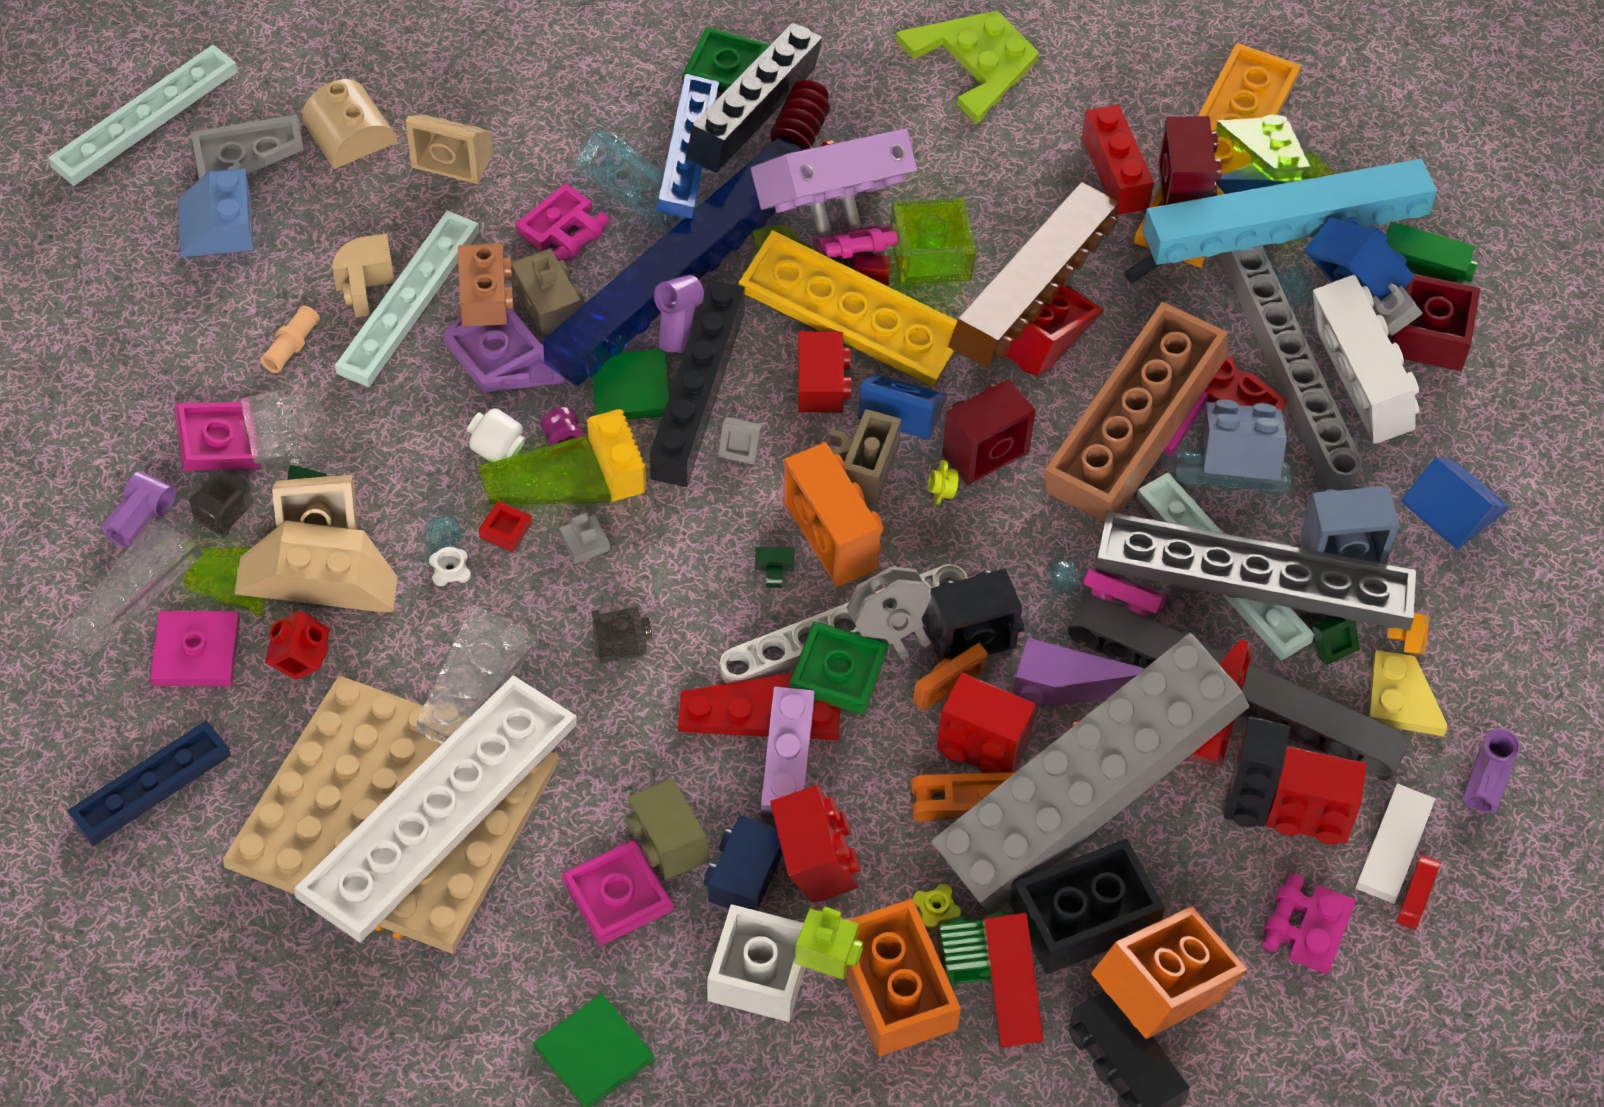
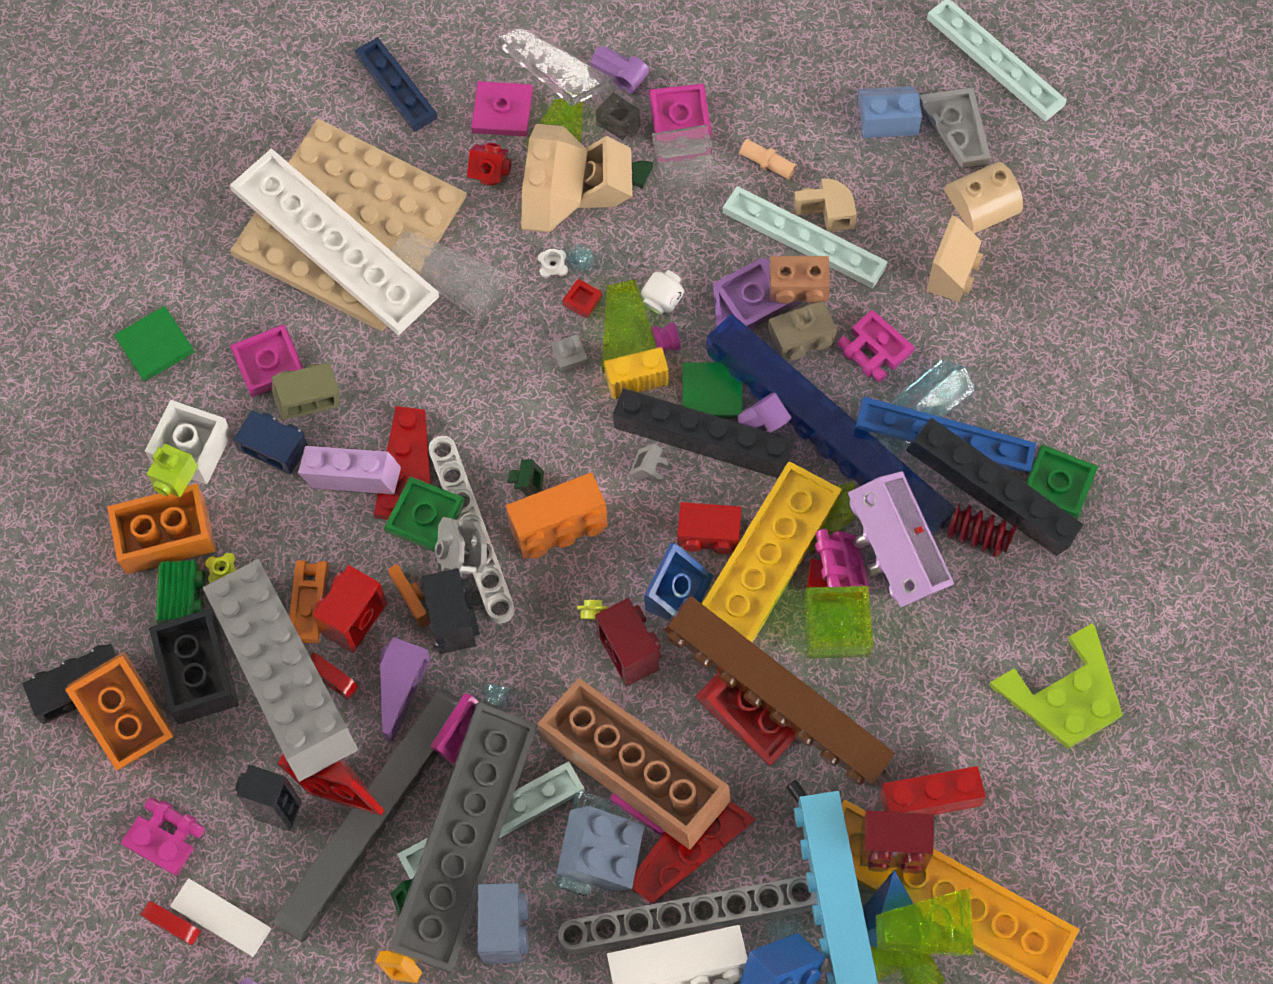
camera: 100 degrees right, 10 degrees up
(620, 634) = (477, 369): clear smoke brick -> none
(816, 844) = (266, 478): red brick -> none
(870, 452) = (616, 551): dark tan brick -> none
(1013, 980) = (142, 605): red tile -> none
(1317, 796) = (252, 848): red brick -> none
(1403, 696) = (350, 949): light yellow wing -> none

